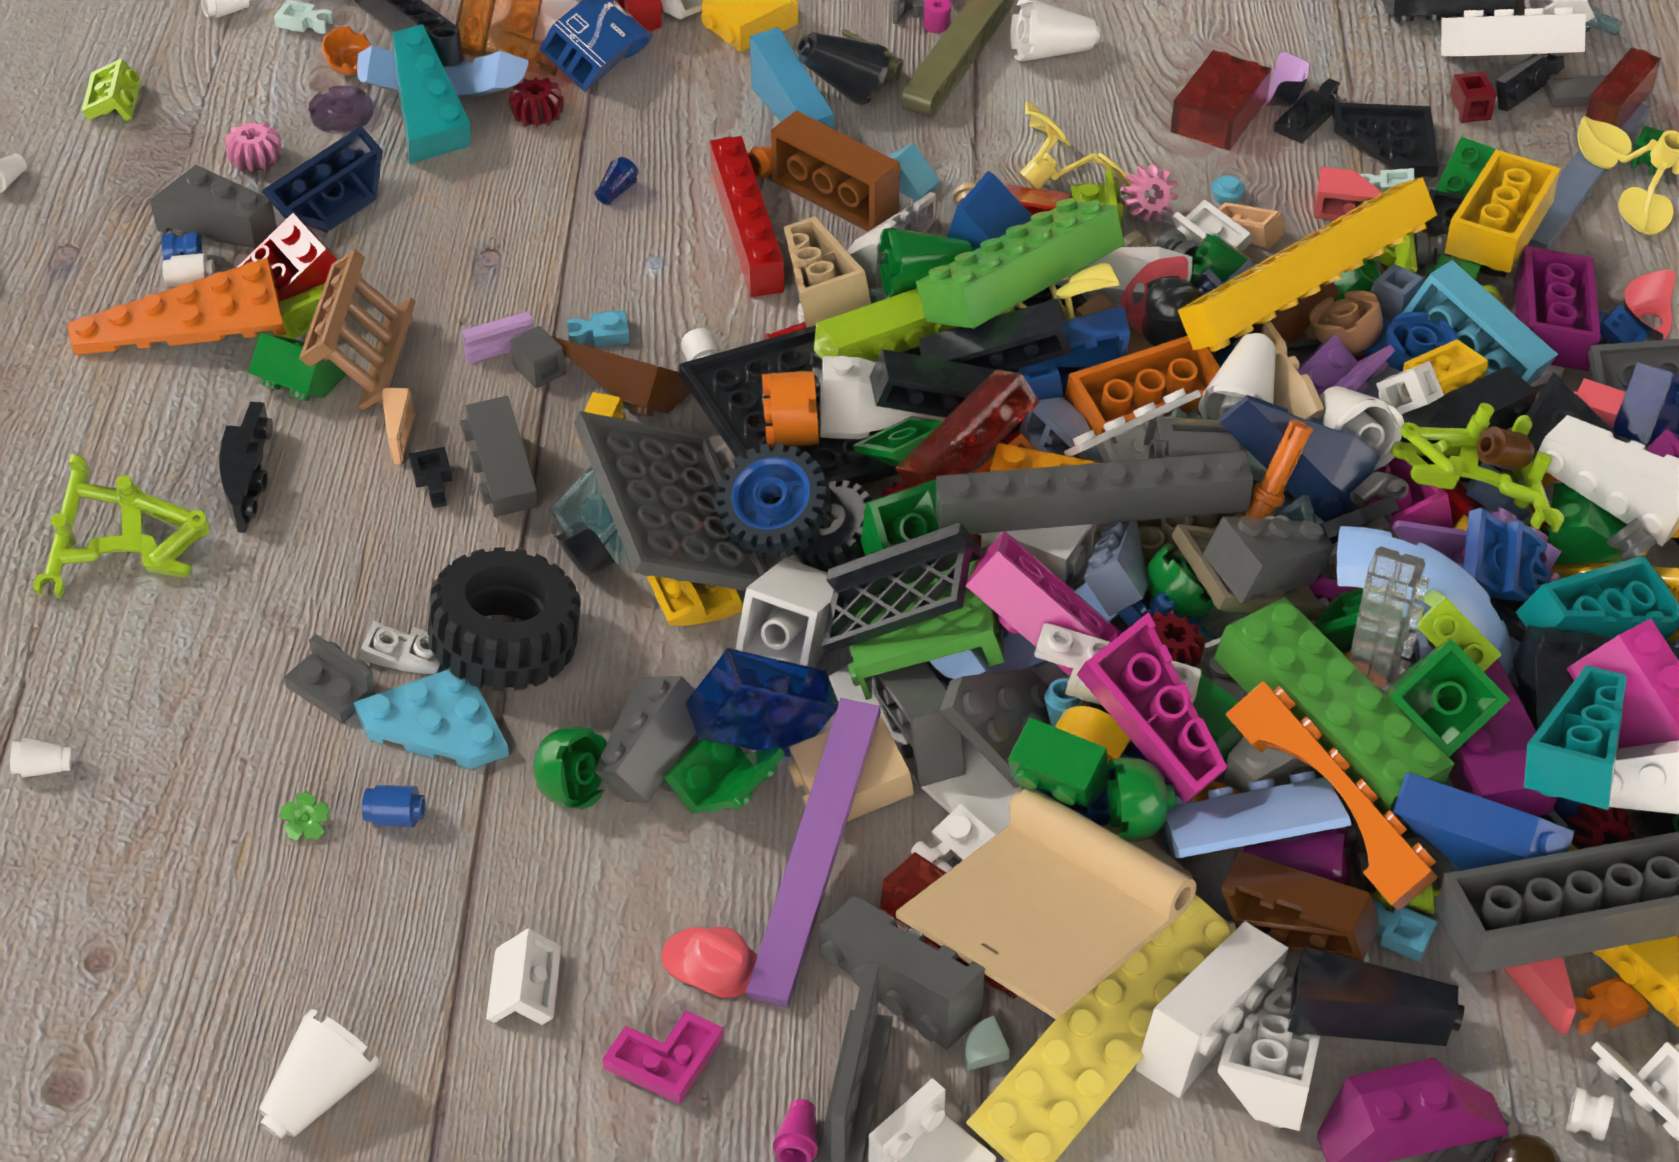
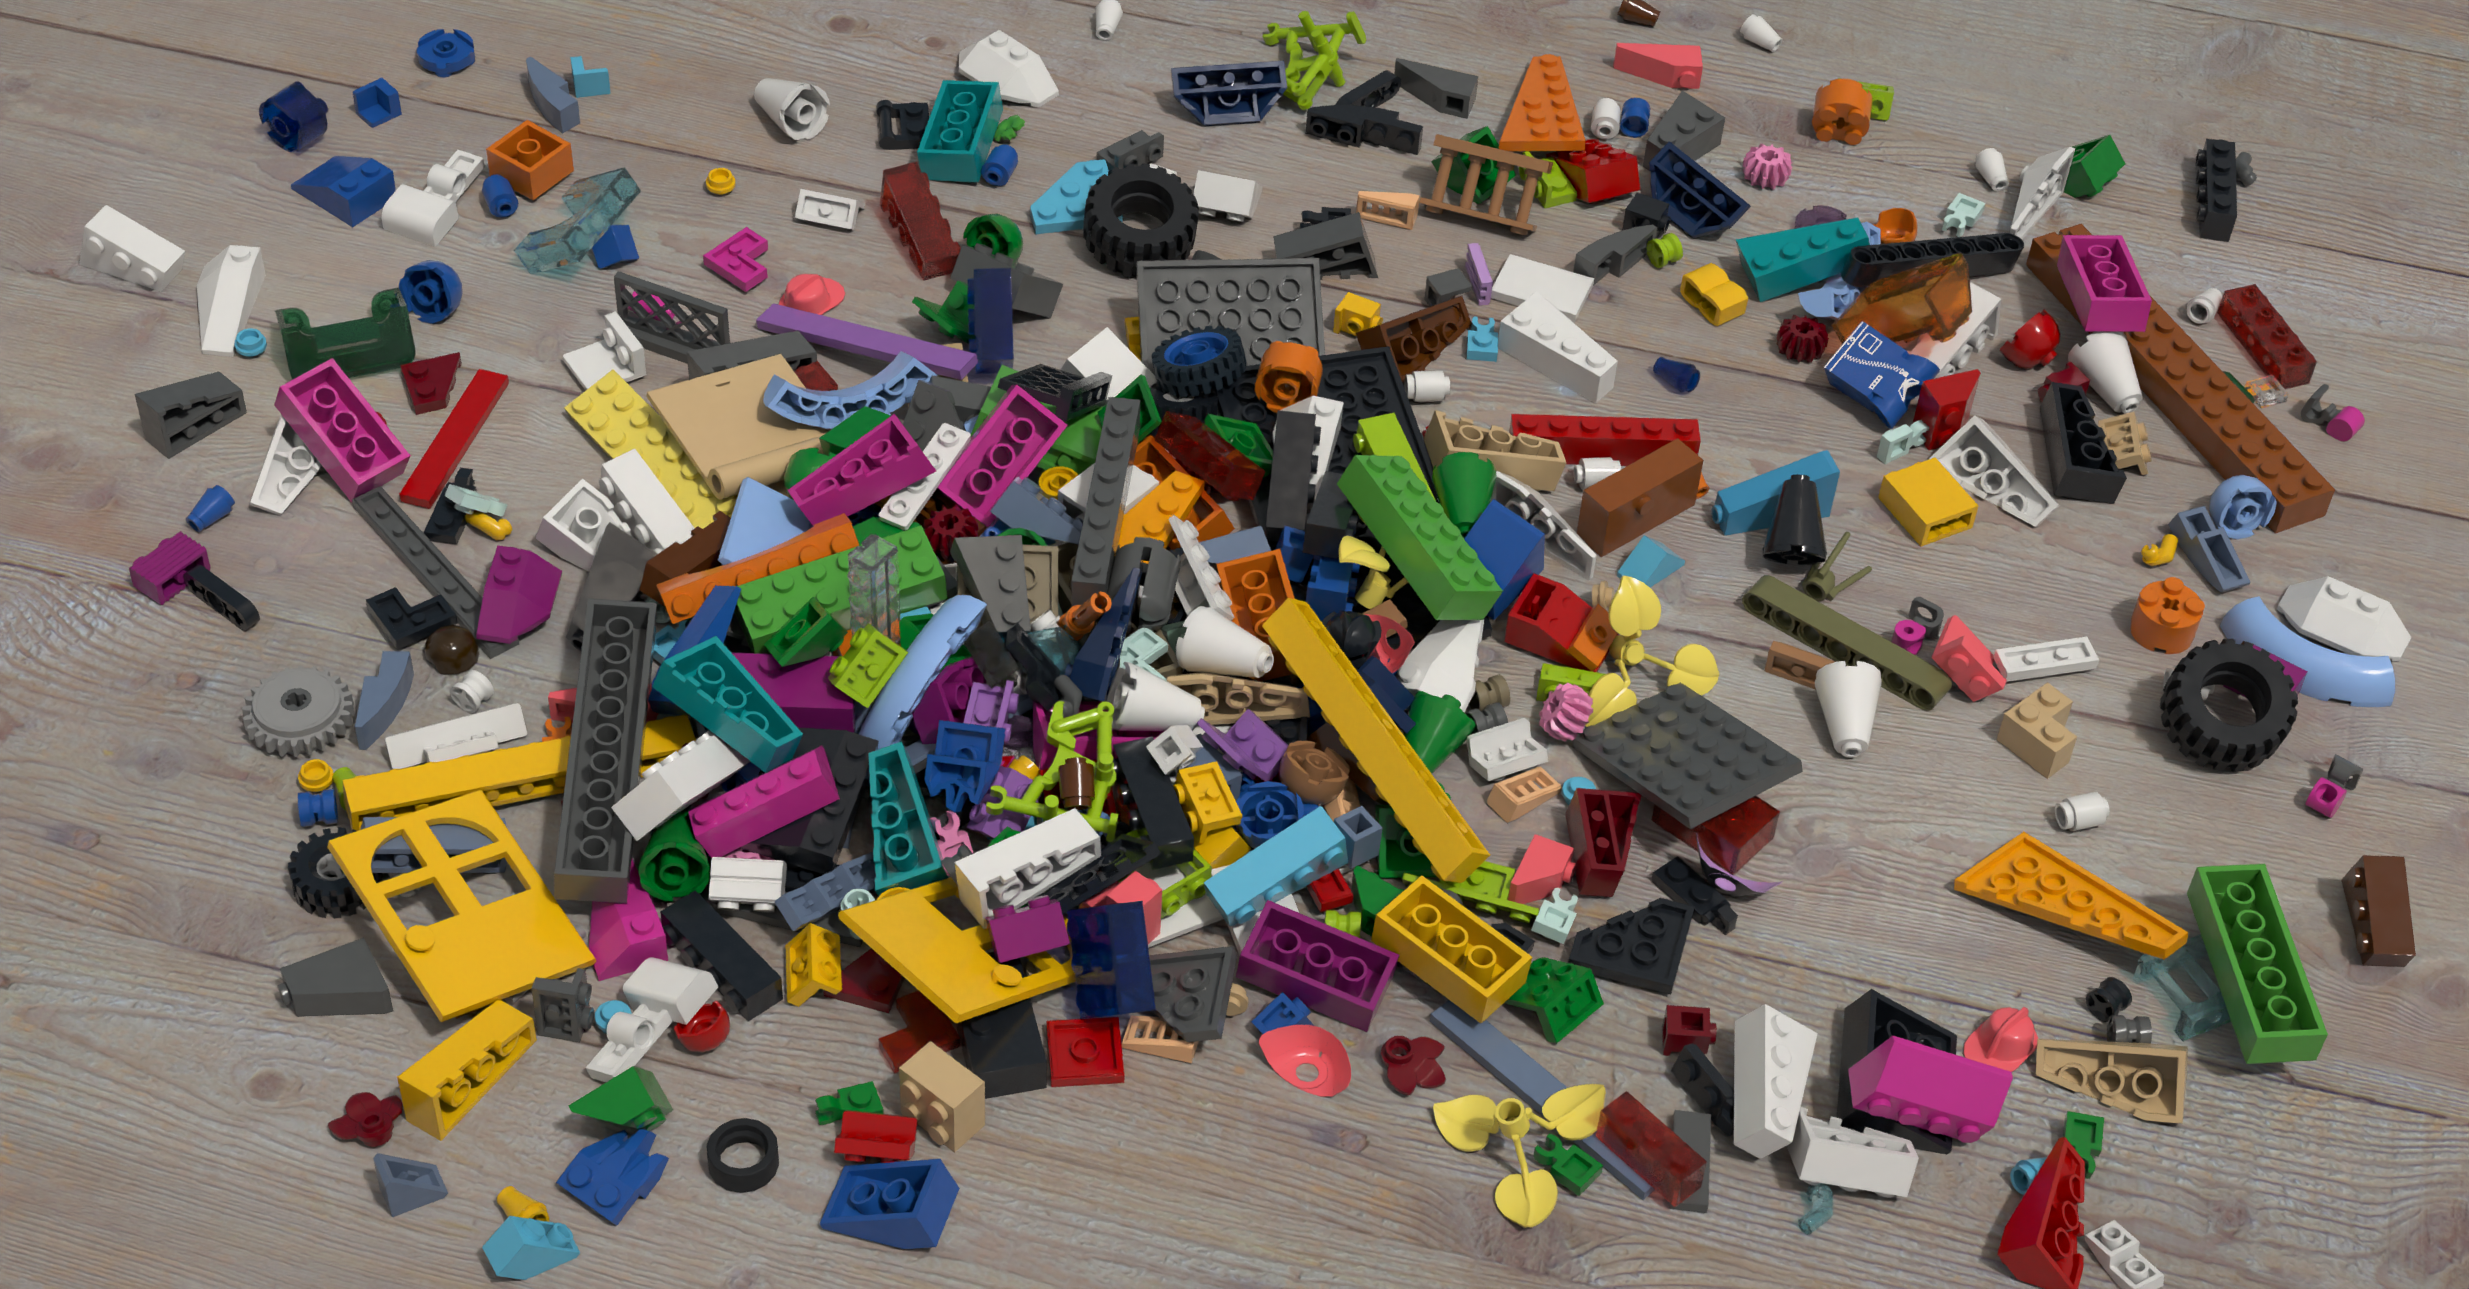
camera: 100 degrees right, 0 degrees up
(76, 235) = (1661, 63): none -> coral slope
(153, 410) = (1438, 87): none -> dark grey slope
(160, 92) = (1842, 111): none -> orange brick
(169, 852) = (1013, 65): none -> white wedge
(177, 474) = (1374, 91): none -> black beam
(195, 589) = (1229, 91): none -> dark blue wedge
(312, 932) = (913, 122): none -> black plate
(336, 856) = (960, 130): none -> teal brick
(364, 224) = (1647, 211): none -> black brick
(404, 567) = (1226, 195): none -> white slope
(418, 205) = (1664, 250): none -> lime wheel
(436, 240) = (1614, 253): none -> dark grey slope
(482, 165) = (1714, 294): none -> yellow brick
(495, 1131) = (720, 181): none -> yellow plate
(497, 290) = (1560, 287): none -> white tile
(546, 857) = (918, 220): none -> clear red wedge
(607, 263) = (1557, 348): none -> white wedge
(672, 31) = (1898, 441): none -> light aqua plate
(789, 210) = (1594, 470): none -> white brick
(954, 809) = (827, 409): none -> light blue brick
(995, 74) = (1794, 664): none -> medium nougat panel
(1040, 184) = (1593, 638): none -> orange plate
(1182, 98) = (1686, 755): none -> dark grey plate
(1292, 159) = (1601, 834): none -> dark red wedge
(1606, 252) = (1415, 1065): none -> dark red plate

